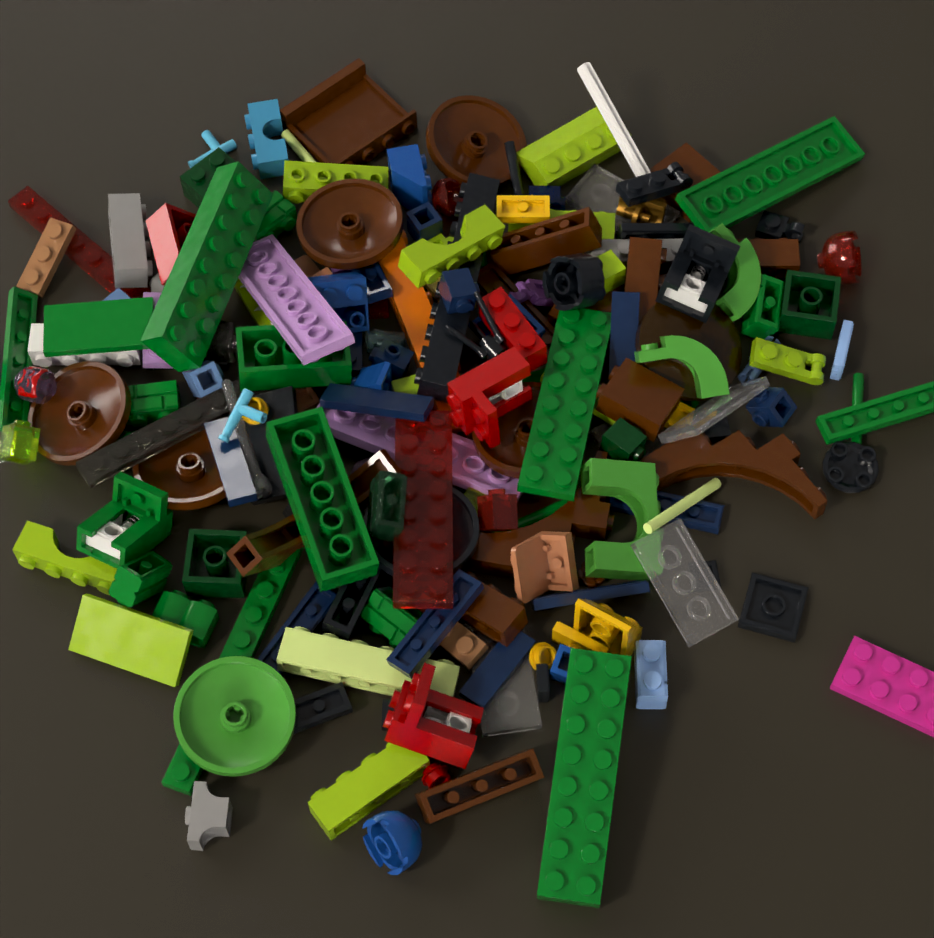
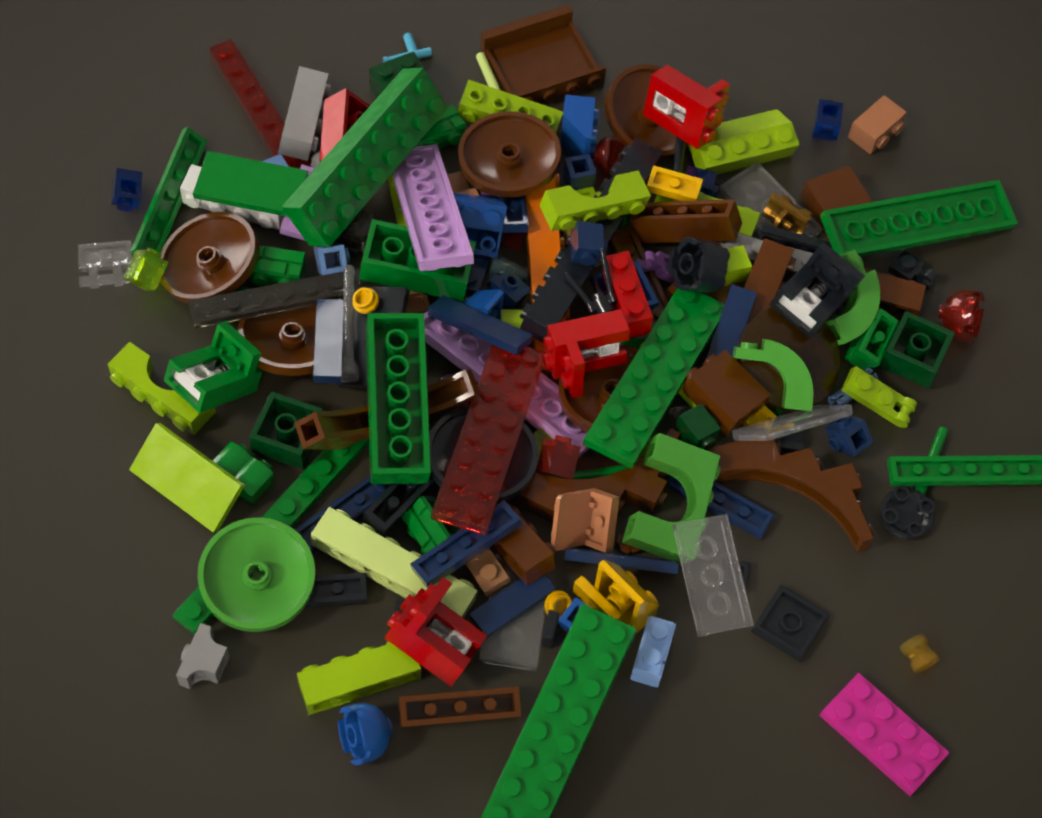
camera: 10 degrees right, 0 degrees up
(35, 384) = (176, 220): head -> none
(46, 257) = (226, 108): medium nougat plate -> none
(140, 579) = (212, 424): green brick -> none
(241, 409) = (353, 295): medium azure piece -> none
(265, 123) = (463, 41): dark azure arch -> none
(386, 505) = (455, 422): clear green brick -> none
(435, 774) = (422, 684): red plate -> none
(509, 127) = (685, 106): none -> red brick
(613, 119) = (788, 137): white axle -> none
(649, 103) = (827, 119): none -> clear blue brick
(654, 185) = (805, 196): black plate -> none
(682, 505) = (732, 503): yellowish green bar -> none
(699, 95) = (877, 125): none -> nougat brick
(842, 350) = (934, 401): light blue tile -> none
(906, 599) = (919, 653): none -> clear yellow wheel

